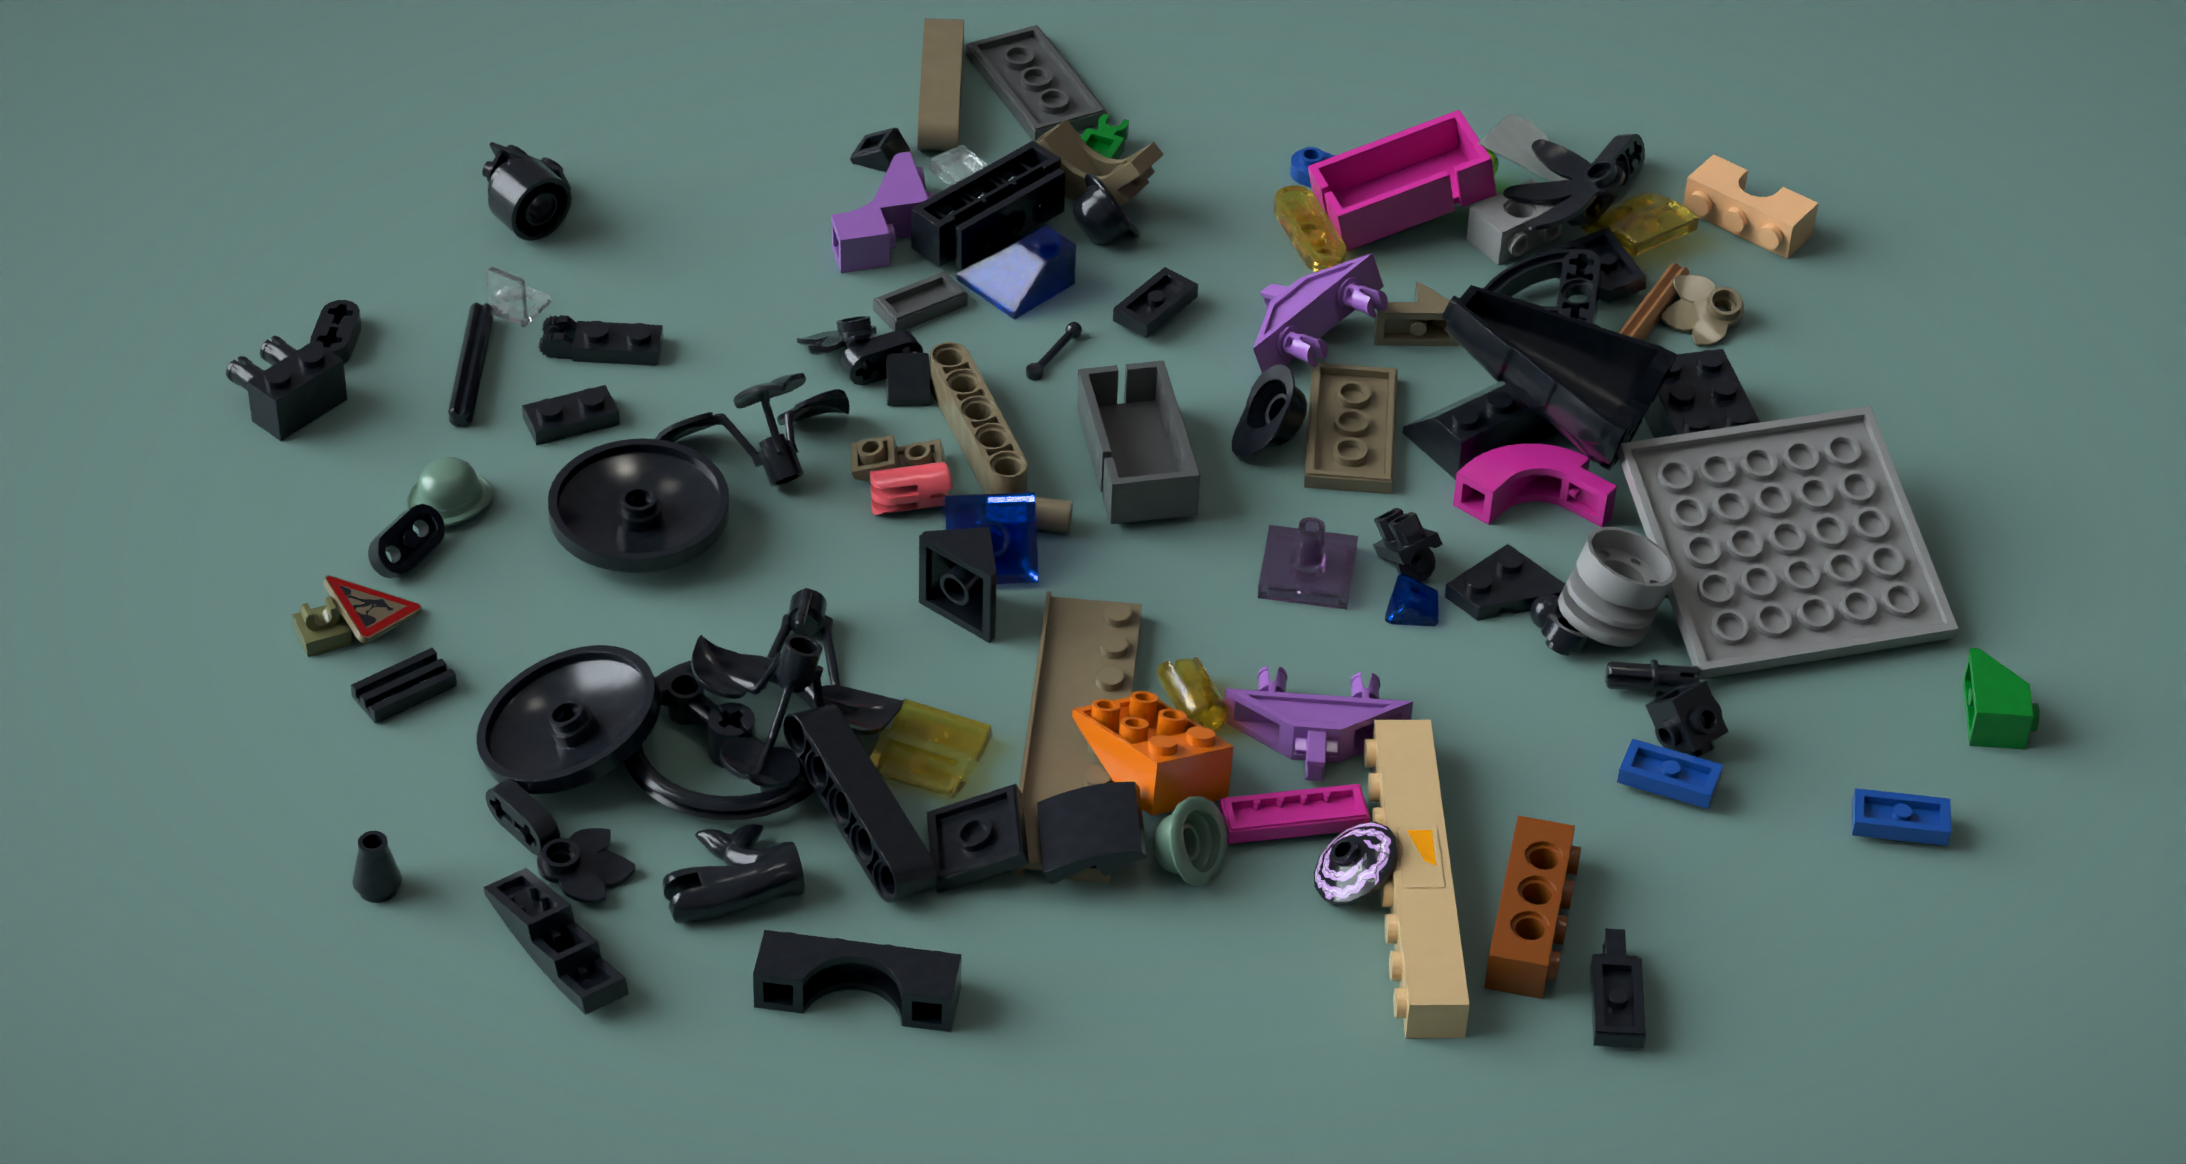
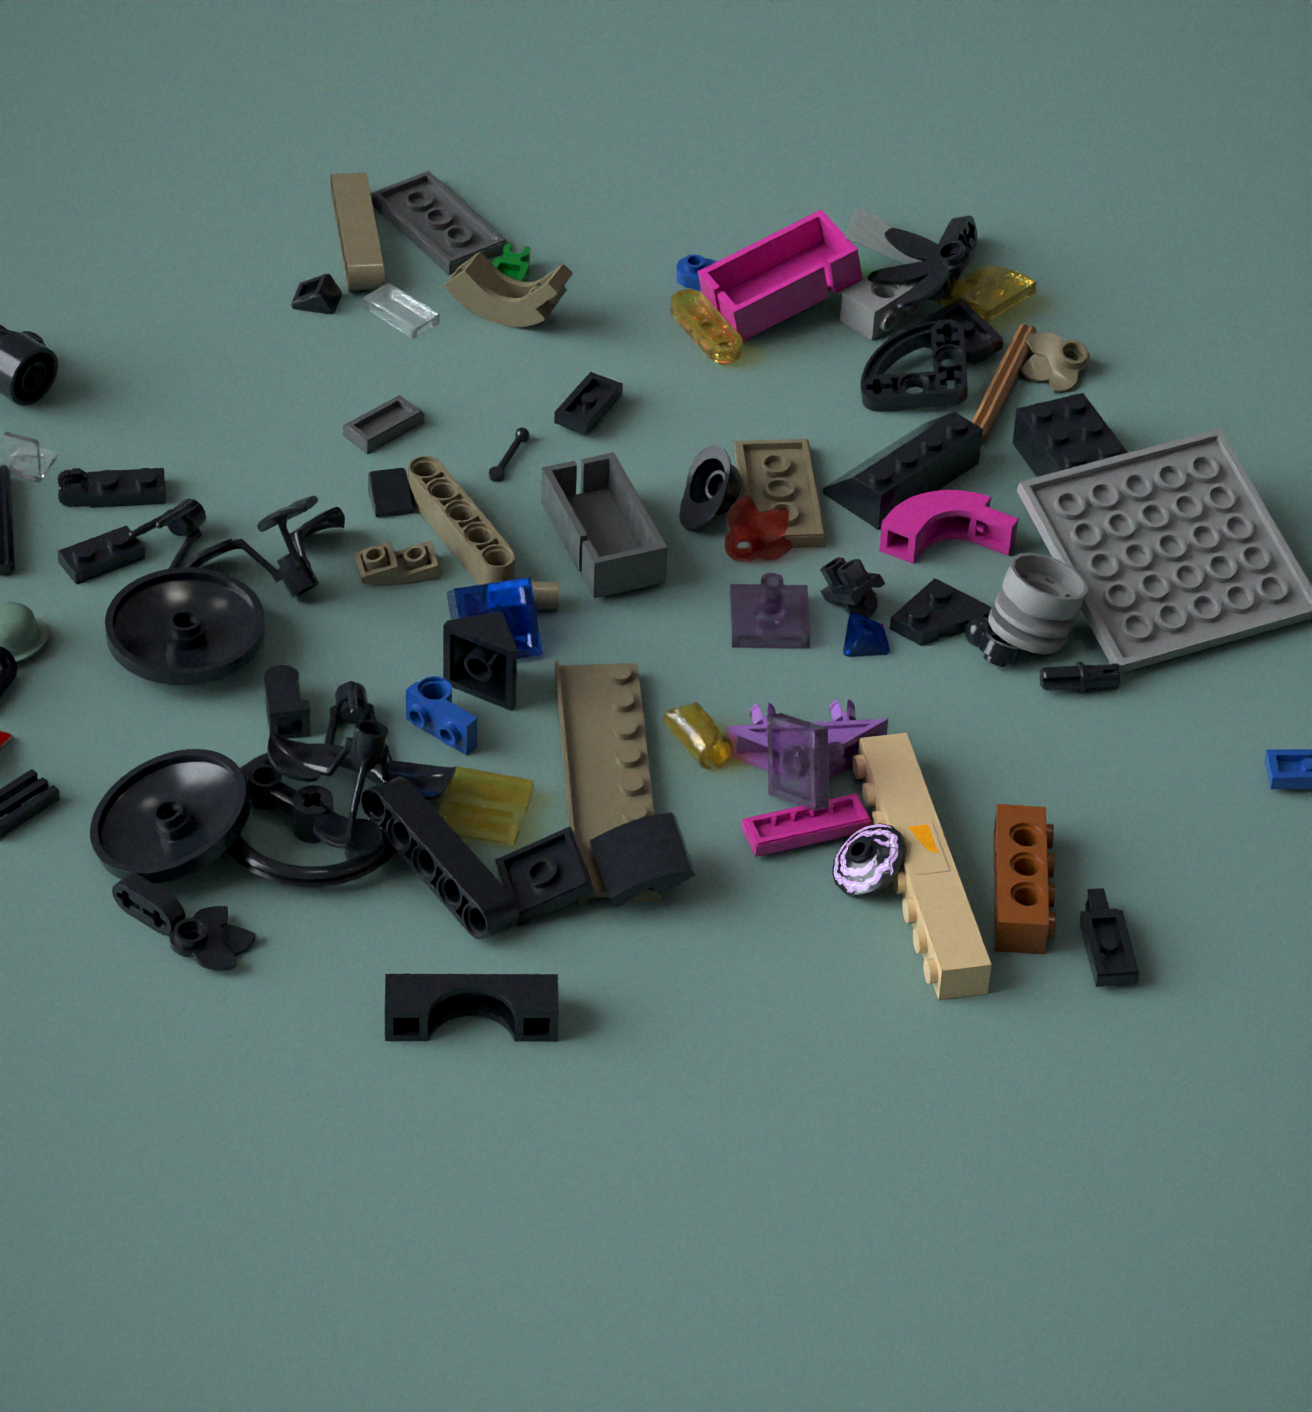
camera: 10 degrees left, 0 degrees up
(375, 870) = (33, 964): black cone -> none
(555, 941) = (202, 1006): black slope -> none
(666, 386) = (181, 521): none -> black plant
(731, 605) = (284, 709): none -> black leg
(748, 880) = (352, 936): black piece -> none
(849, 332) = (330, 457): black plate -> none
(866, 359) = (351, 478): black beam -> none
(867, 234) = (349, 345): medium lavender arch -> none
(896, 631) = (431, 709): none -> blue plate
(909, 487) = (415, 585): coral arm -> none
(1005, 203) = (462, 310): black brick -> none
(1024, 272) = (467, 388): clear blue slope -> none
(1100, 214) = (525, 330): black hat -> none
(1157, 749) = (684, 782): orange slope -> none
(1192, 841) = (727, 857): sand green hat -> none
(1297, 738) = (800, 761): none -> clear purple tile
(1312, 307) = (726, 394): medium lavender connector -> none
(1315, 467) = (761, 530): none -> clear red plate
(1414, 322) = (821, 396): dark tan slope -> none
(1566, 369) = (958, 422): black cone -> none
(1670, 773) = (1111, 755): blue plate -> none
(1687, 719) = (1118, 708): black brick -> none
(1773, 222) = (1097, 280): light nougat arch -> none

